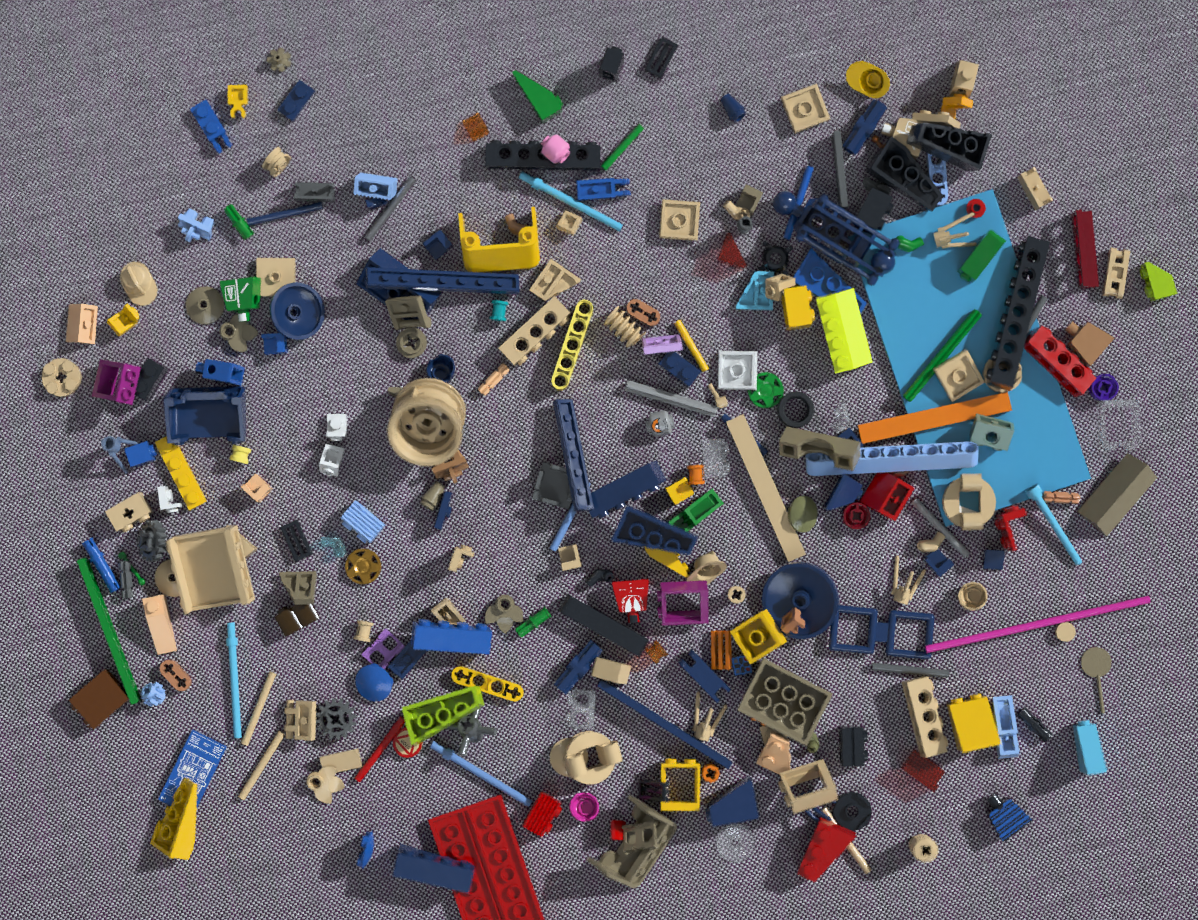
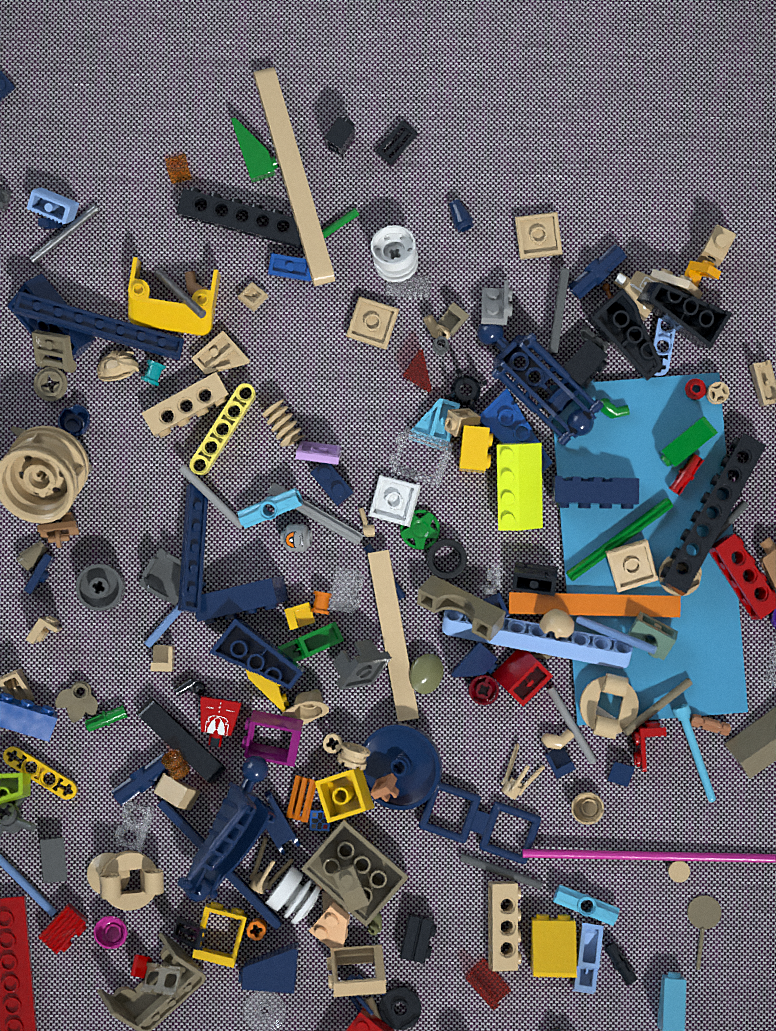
camera: 10 degrees right, 0 degrees up
(438, 245) = (105, 285): dark blue panel -> none
(465, 312) = (117, 366): none -> tan hat
(490, 503) = (88, 591): none -> dark grey wheel
(493, 379) = (129, 445): light nougat axle -> none
(507, 235) = (180, 293): none -> flat silver bar
(517, 756) = (53, 859): none -> dark grey hinge
(537, 184) = (230, 247): medium azure bar -> none
(555, 149) = (255, 213): bright pink head -> none
(576, 405) = (210, 495): none -> light grey bar
(580, 109) = (294, 176): none -> tan beam
(603, 644) = (175, 764): none -> clear orange wheel
(640, 395) = (258, 512): none -> medium azure piece
(645, 308) = (312, 409): nougat beam -> none
(656, 651) = (224, 781): clear orange wheel -> none
(670, 694) = (232, 835): none -> dark blue piece
(684, 154) = (394, 253): none -> white wheel
(691, 346) = (351, 461): yellow bar -> none
(702, 180) = (413, 287): none -> clear slope
(736, 735) = (293, 895): none -> white wheel
(747, 523) = (362, 669): none -> dark grey panel
(758, 600) = (353, 755): none -> tan wheel
(771, 312) = (425, 439): none -> clear window
(784, 178) = (495, 305): none -> light grey bracket
(785, 715) = (350, 888): none -> dark tan slope
(800, 197) = (507, 333): blue bar -> none
(868, 79) = (613, 221): yellow piece -> none
(877, 407) = (534, 578): none -> black brick
(907, 440) = (557, 622): none -> tan hair
(911, 318) = (595, 492): none -> dark blue wedge
(944, 238) = (652, 413): tan plant -> none
(960, 438) = (616, 634): none -> medium blue bar
(980, 679) = (599, 910): none -> medium azure piece
(986, 284) = (686, 474): none -> red pin
(998, 204) = (719, 389): none -> tan wheel
(1011, 493) = (657, 706): none -> dark tan bar

